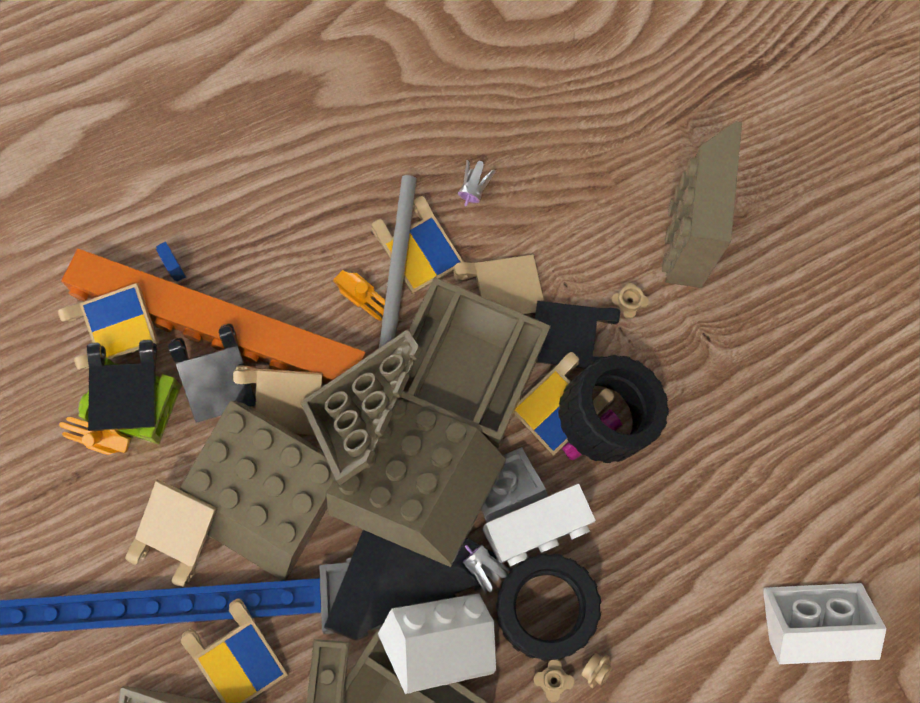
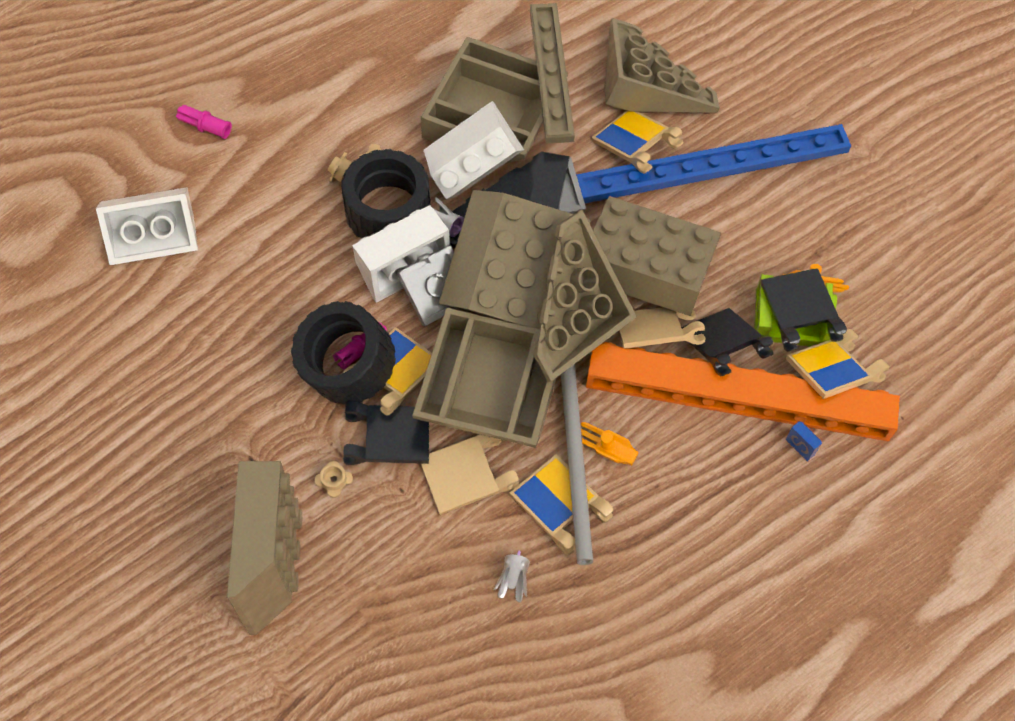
camera: 170 degrees right, 10 degrees down
(174, 525) = (716, 211): tan flag -> none

